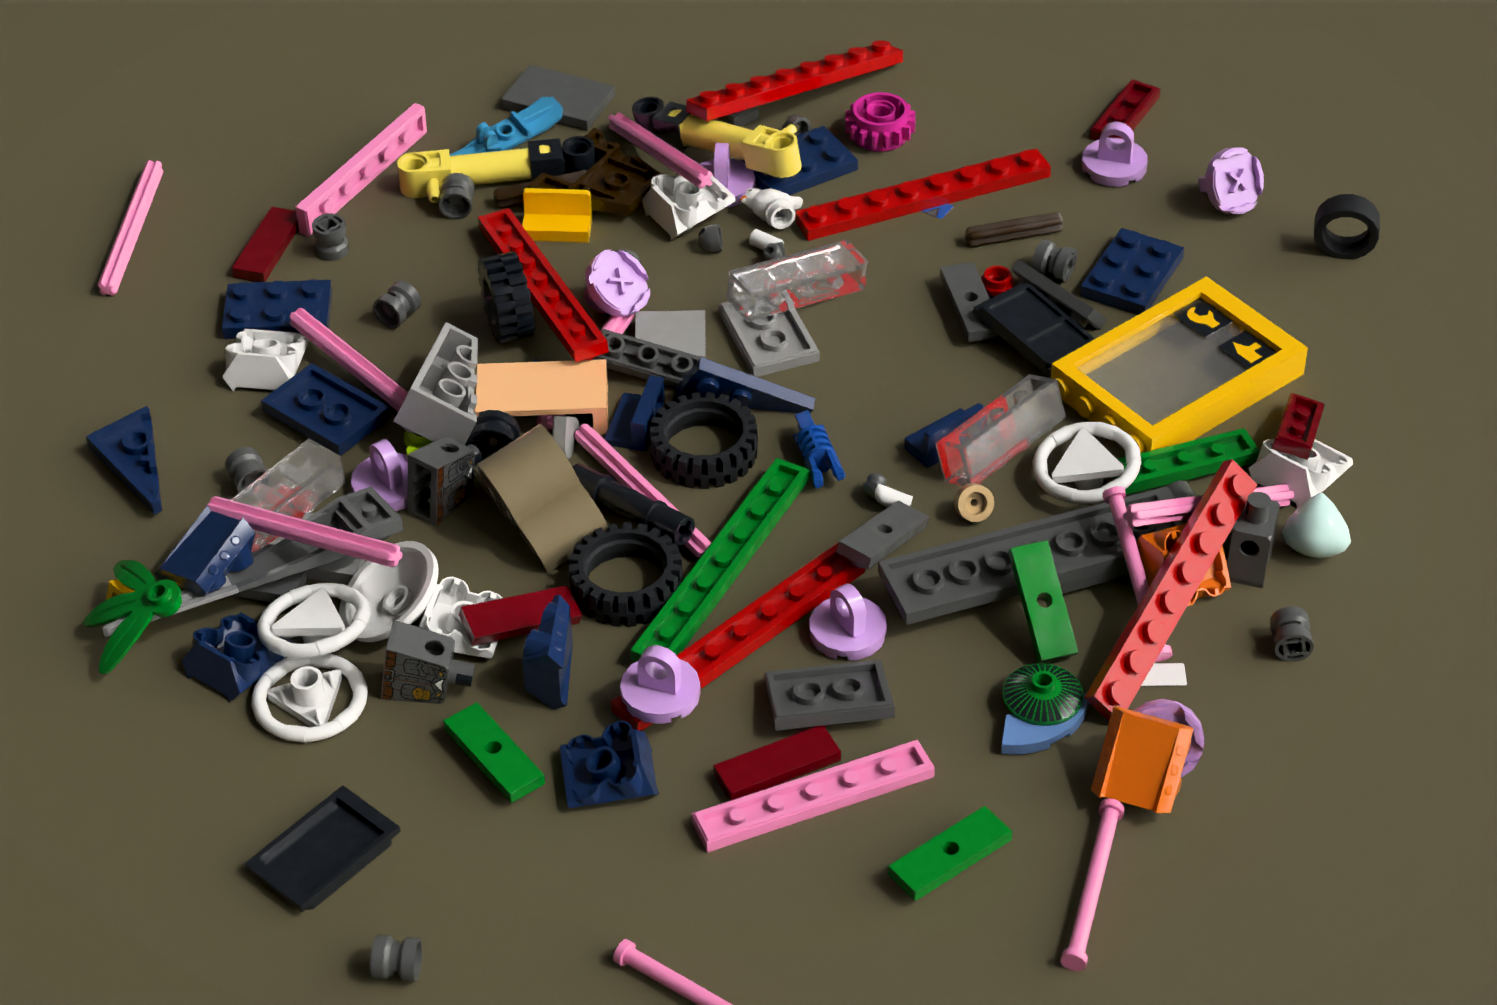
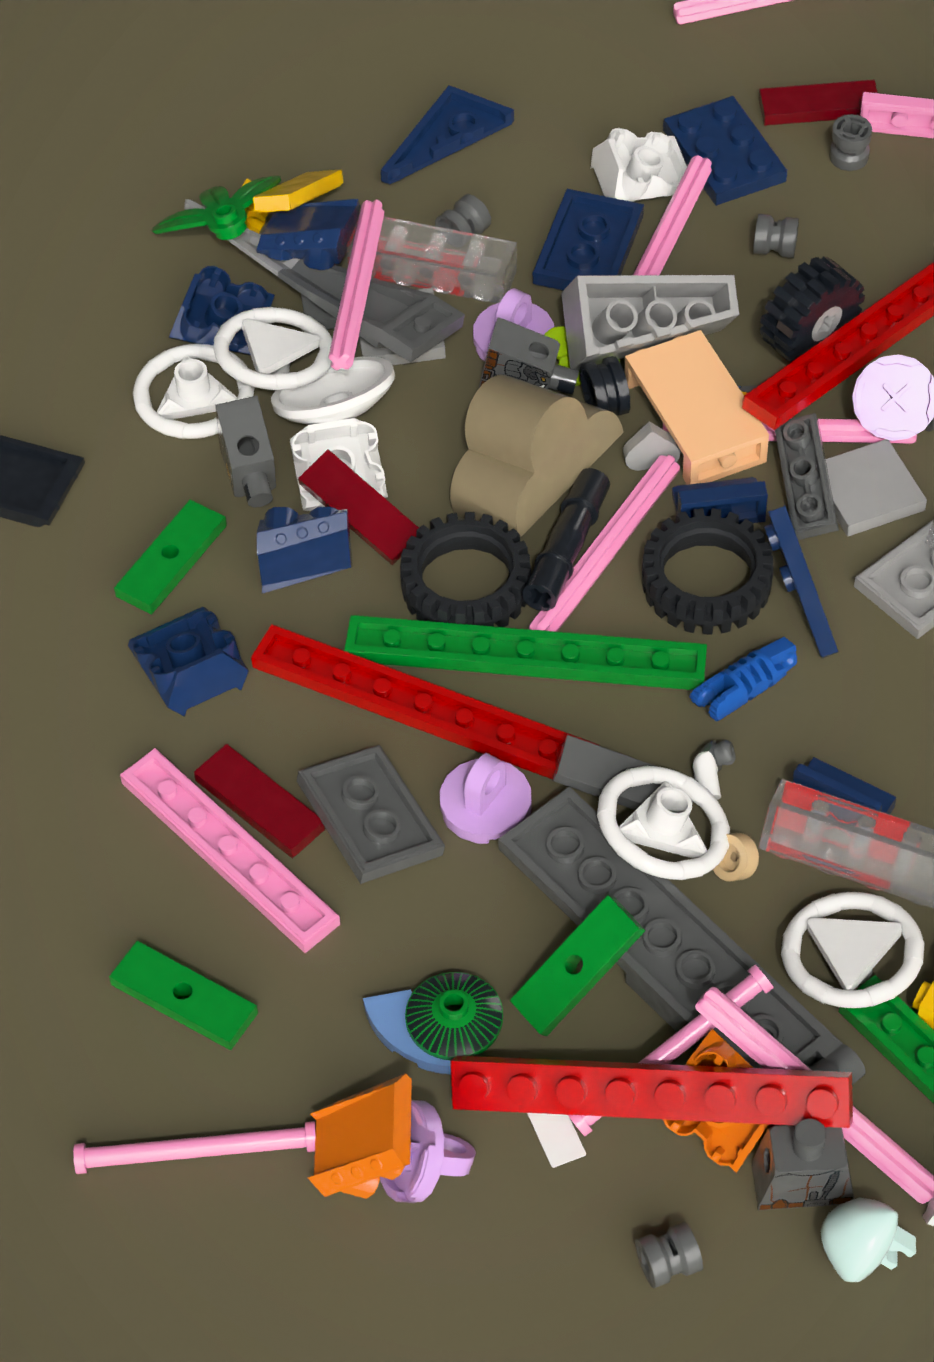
camera: 70 degrees right, 10 degrees up
(153, 550) = (298, 191): none -> yellow tile
(659, 686) = (296, 655): lavender tile -> none
(938, 519) = (664, 823): none -> white piece

